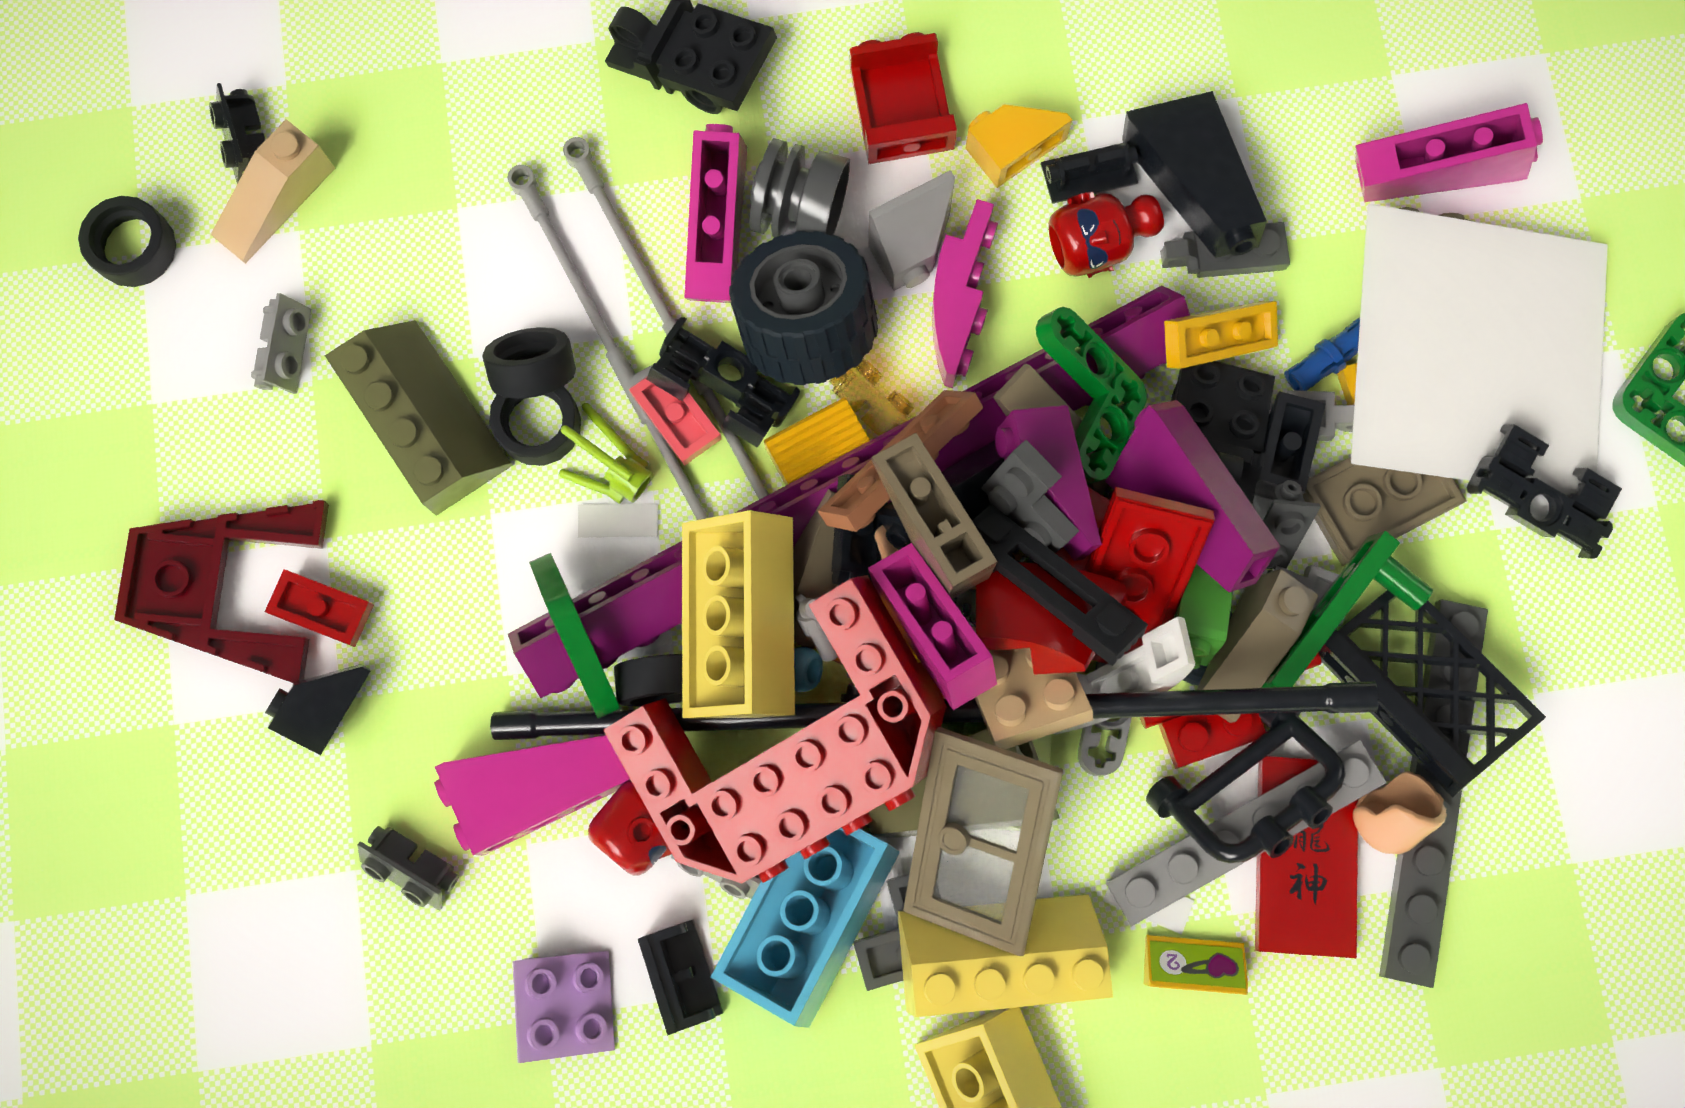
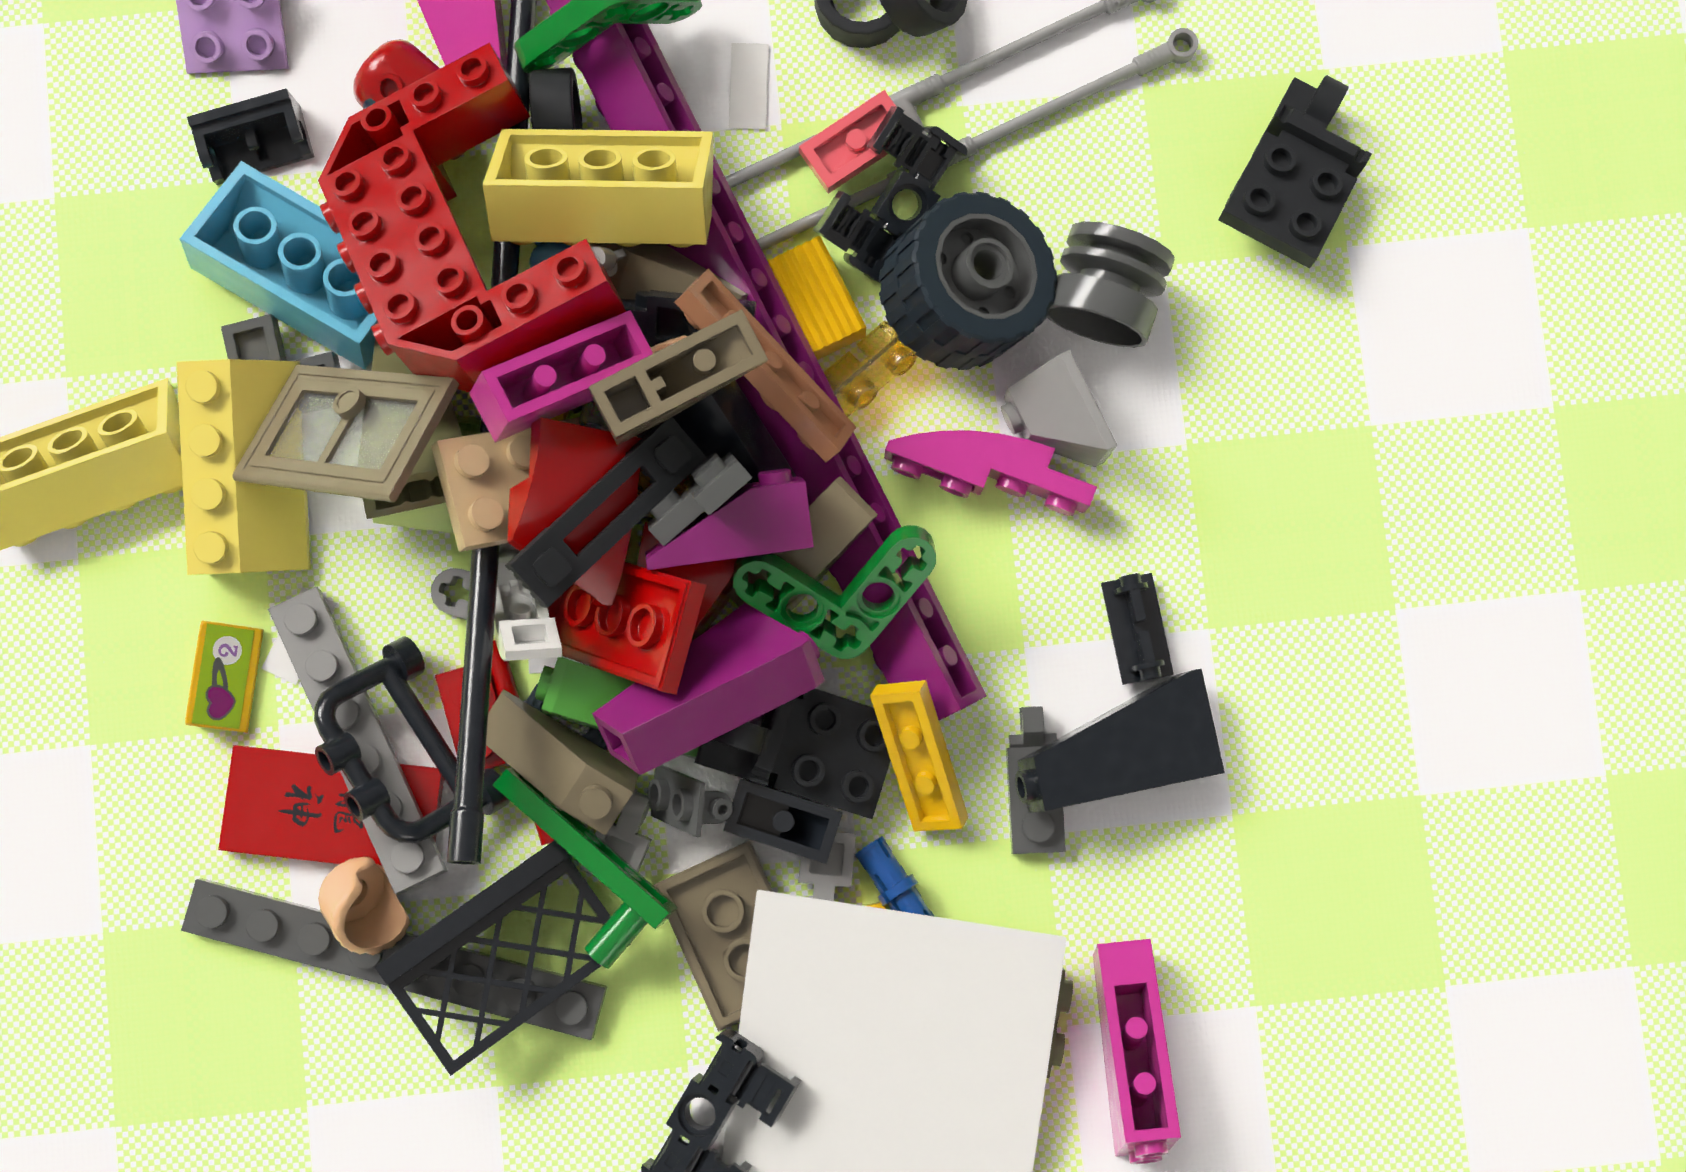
camera: 90 degrees right, 5 degrees up
(626, 476) = (791, 88): lime plant -> none
(714, 212) = (1120, 190): dark pink slope -> none
(901, 98) = (1235, 414): red panel -> none
(1014, 139) = (1177, 540): yellow slope -> none
(1100, 231) = (1054, 627): red piece -> none

